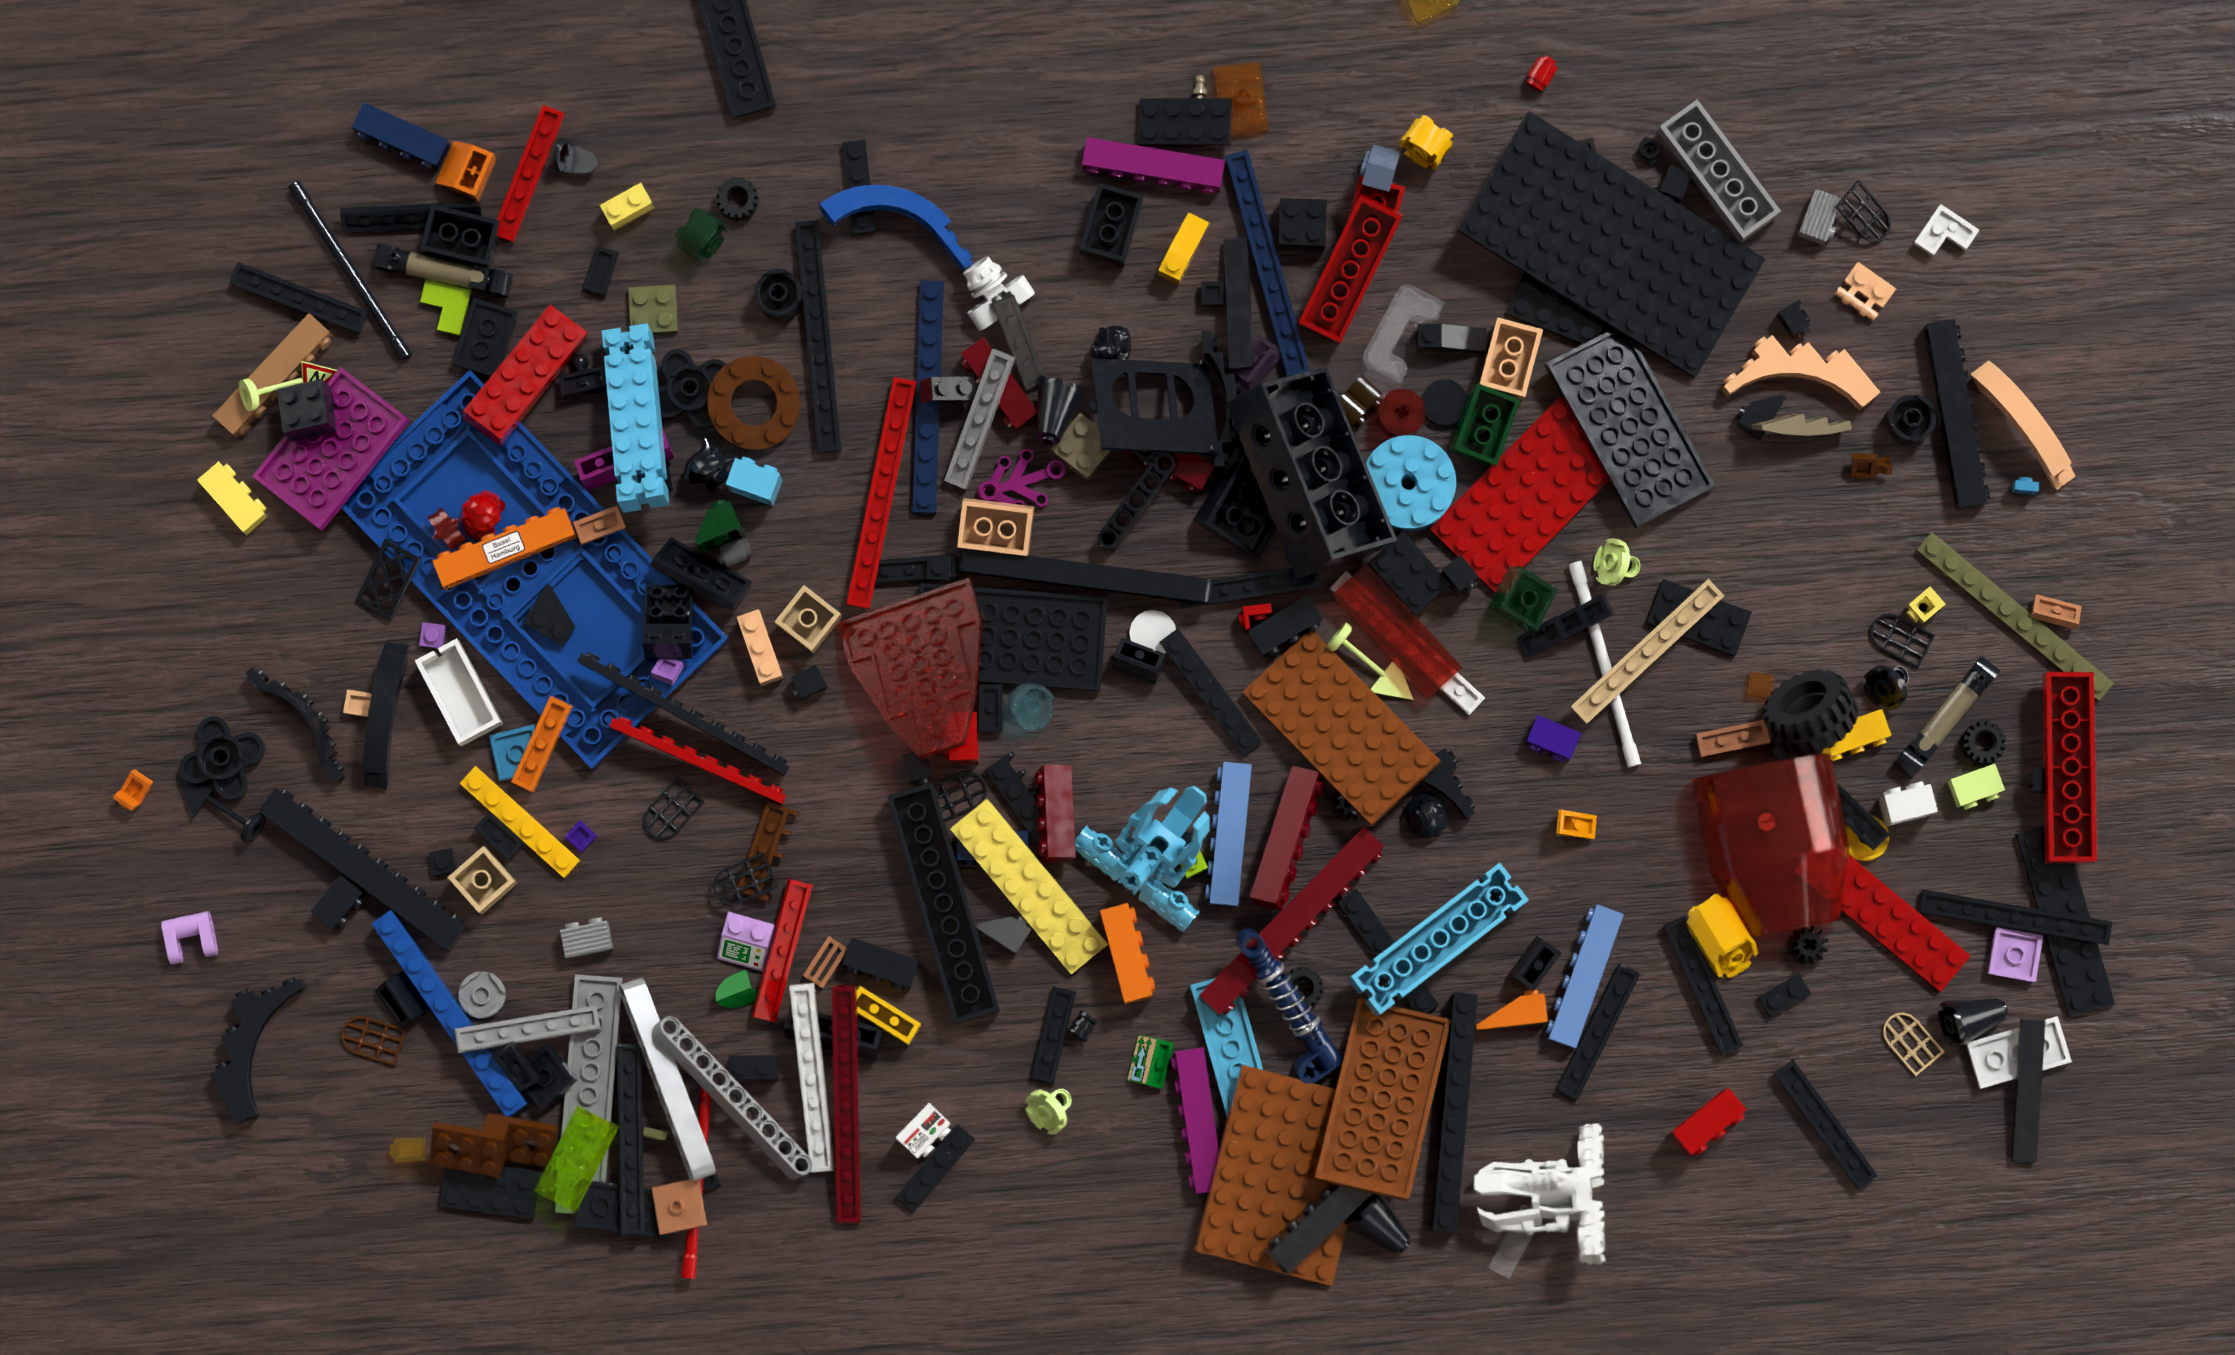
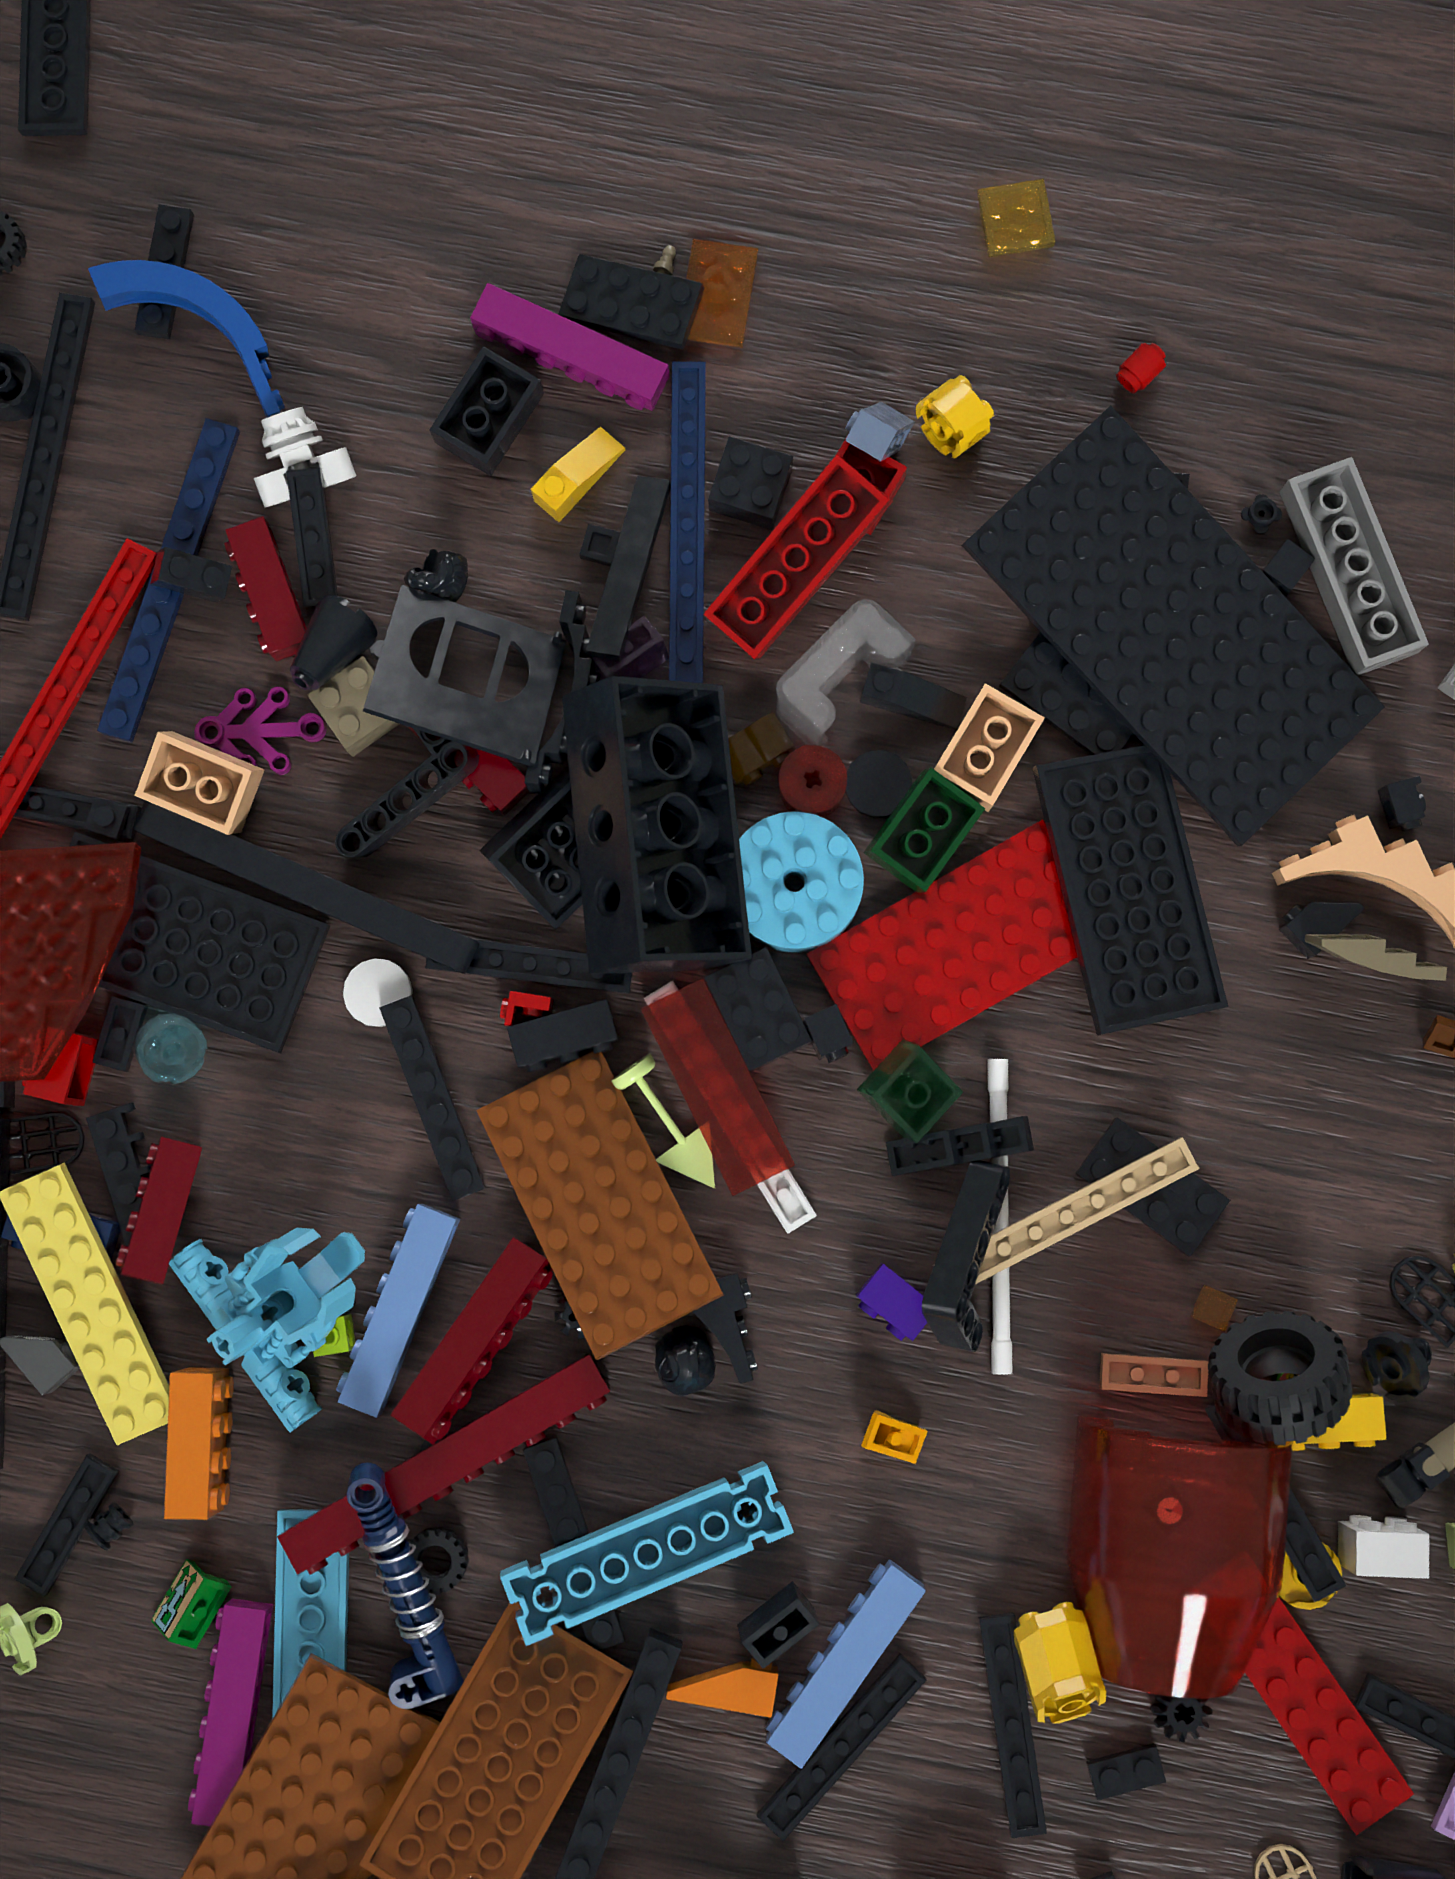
camera: 20 degrees right, 0 degrees up
(979, 419) = (223, 626): light grey plate -> none
(1138, 661) = (342, 1026): black brick -> none
(1586, 695) = (961, 1255): none -> black beam
(1613, 562) = (1053, 1074): yellowish green tile -> none

